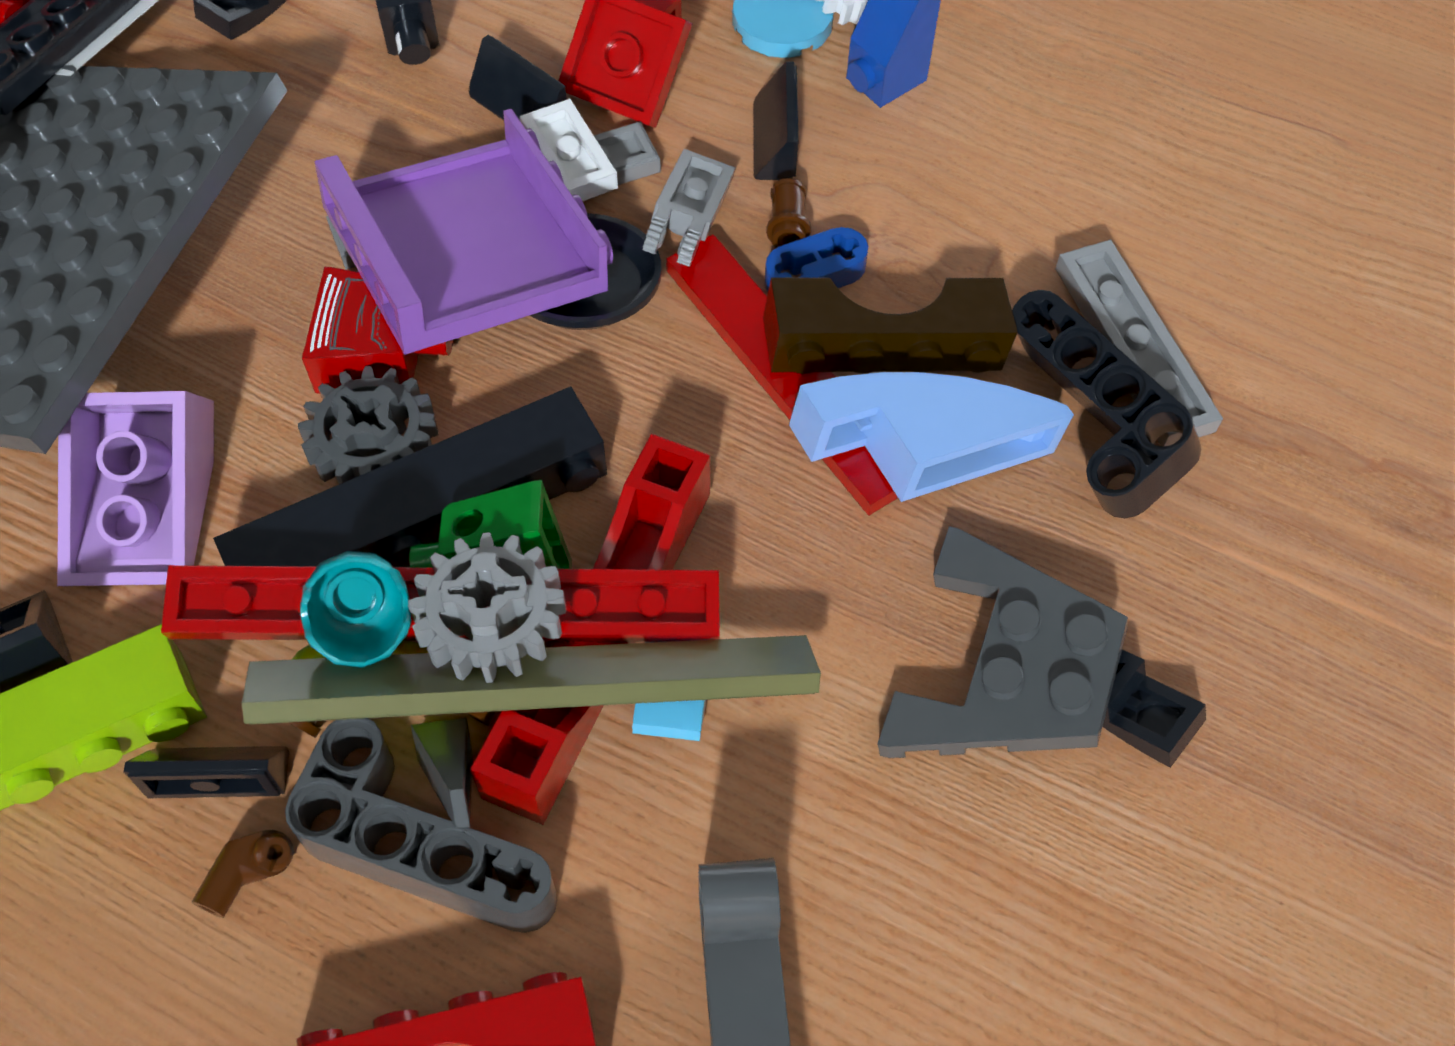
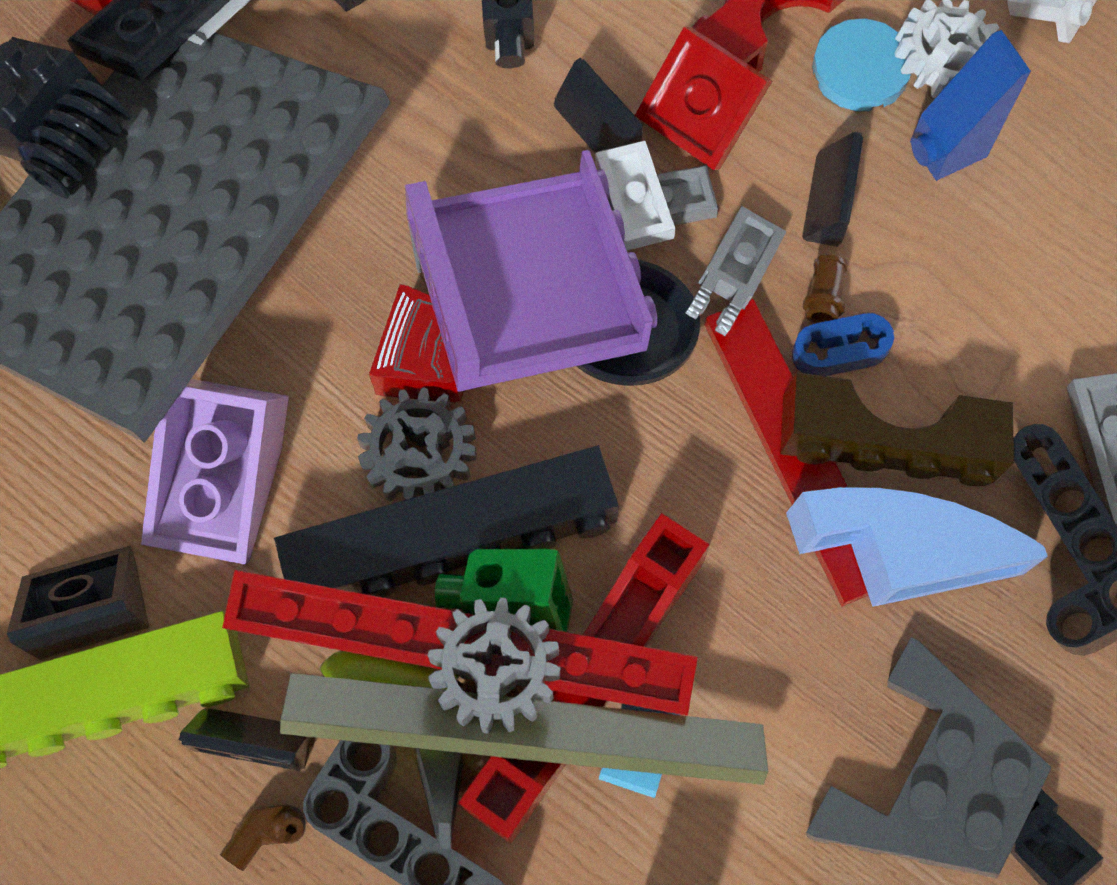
camera: 15 degrees right, 10 degrees up
(355, 609) = (384, 650): teal hair -> none

